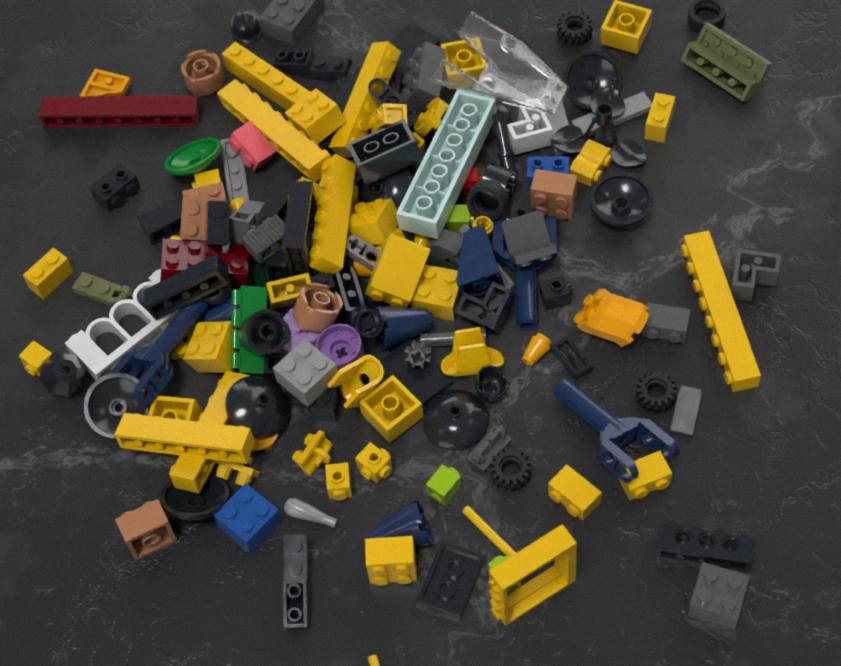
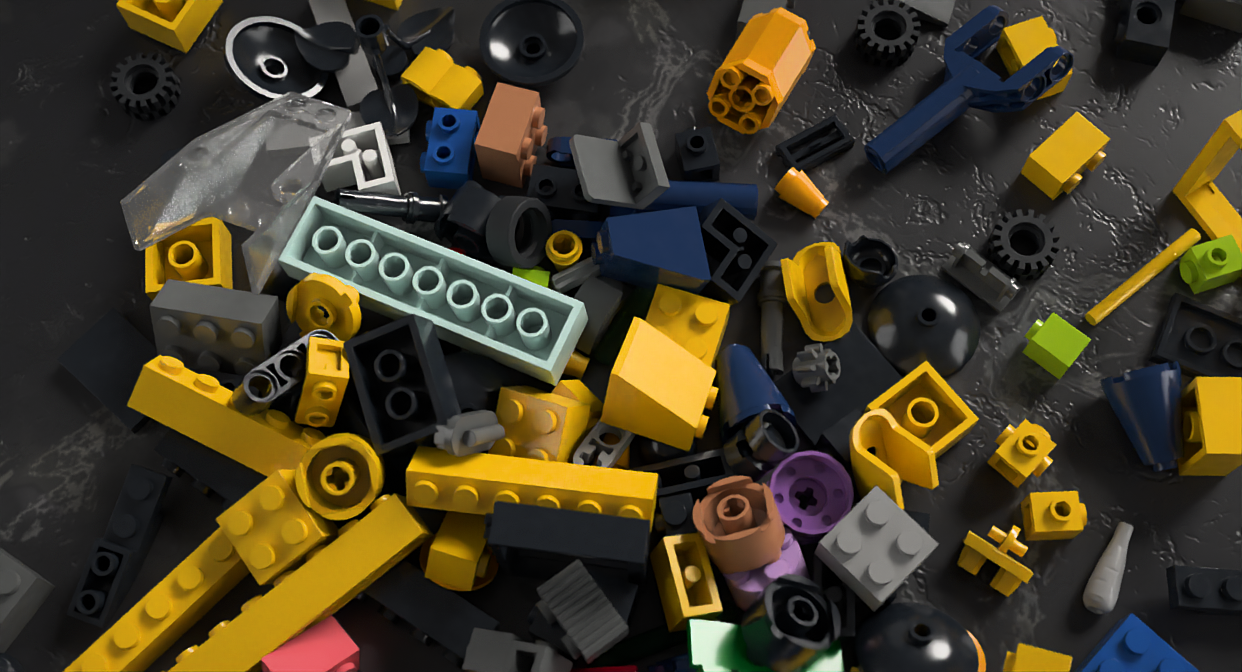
camera: 90 degrees left, 10 degrees up
(336, 131) = (332, 496): none -> yellow brick
(361, 182) = (469, 433): none -> dark grey piece

